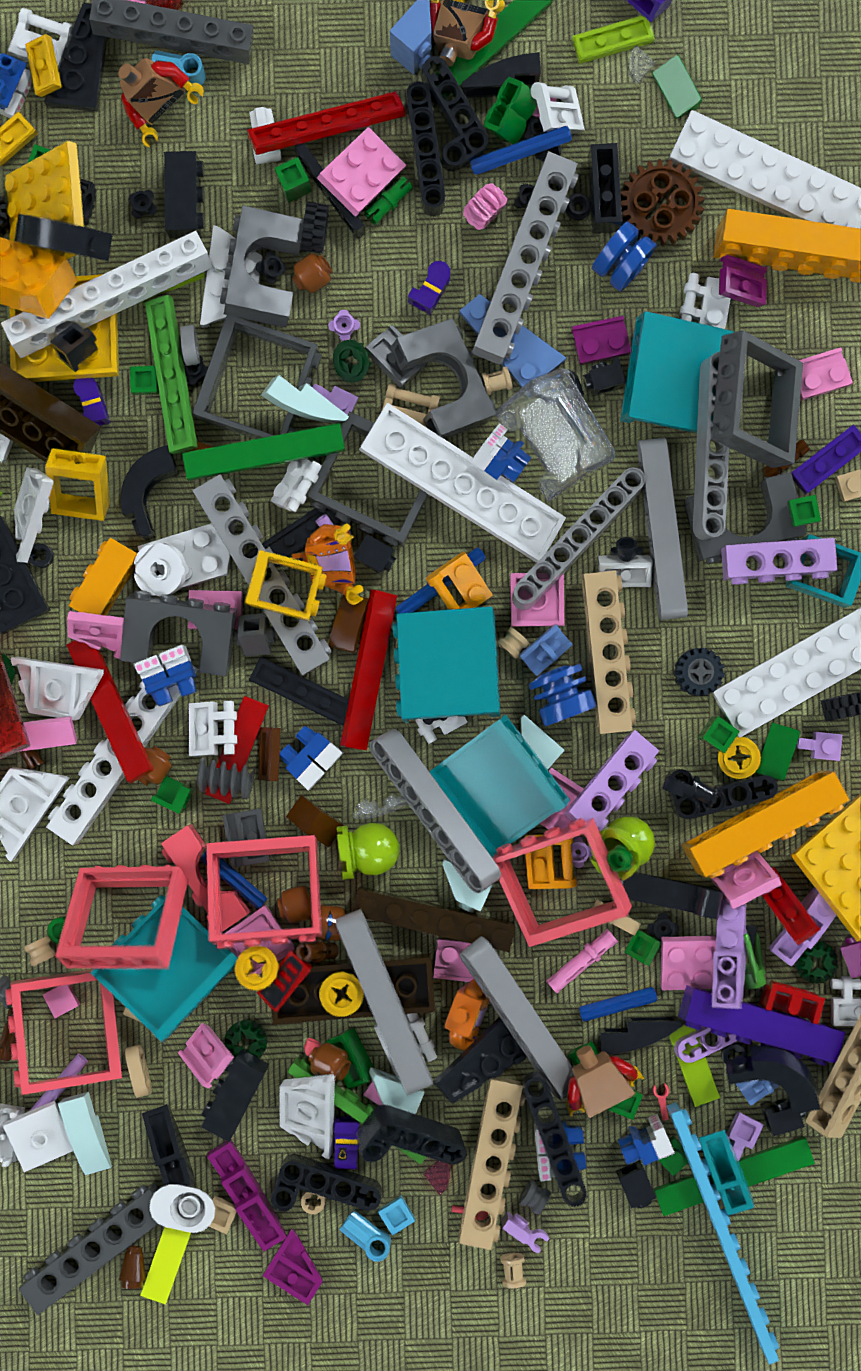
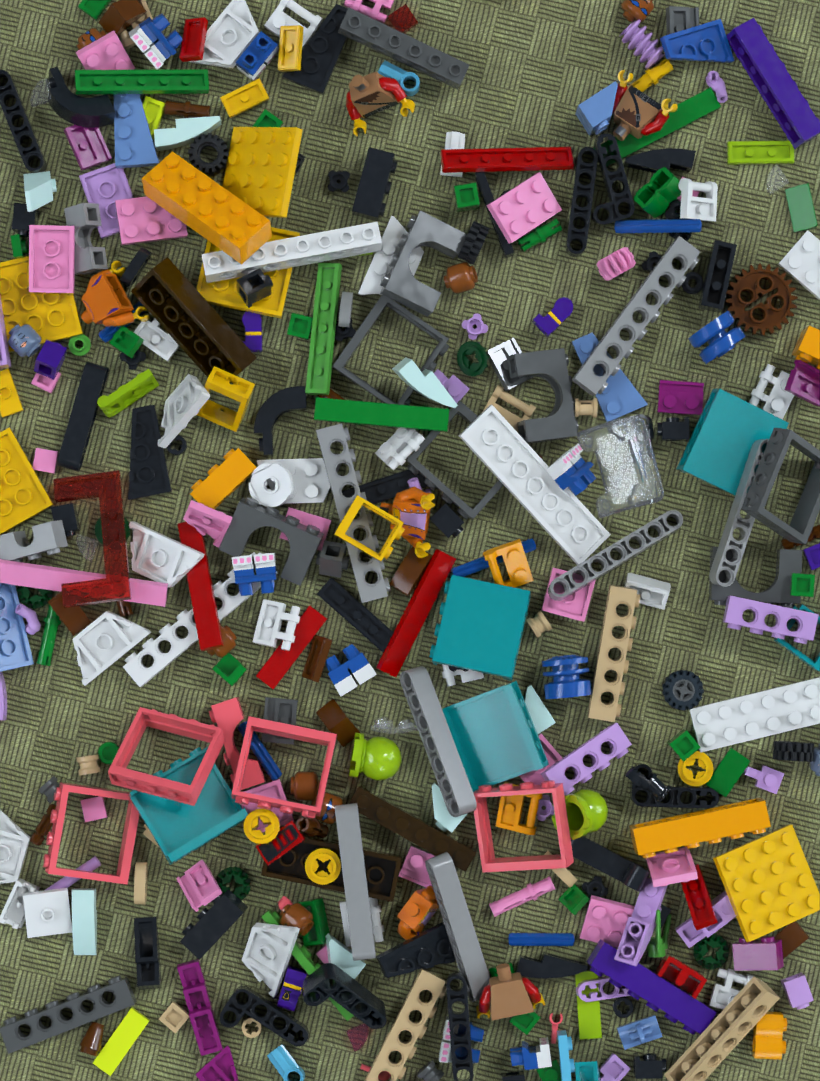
camera: 15 degrees right, 0 degrees up
(63, 237) = (269, 203): black arch -> none
(182, 1208) = (147, 1001): white piece -> none
(225, 779) = (276, 668): dark grey piece -> none
(274, 261) = (432, 267): black plate -> none
(396, 1215) = (315, 1057): medium azure plate -> none
(545, 650) = (563, 637): medium blue hips -> none
(620, 859) = (574, 821): green plate -> none
(626, 549) = (652, 574): black plate -> none
(662, 529) = (686, 566): light grey beam -> none
(778, 1067) = (656, 1025): black arch -> none

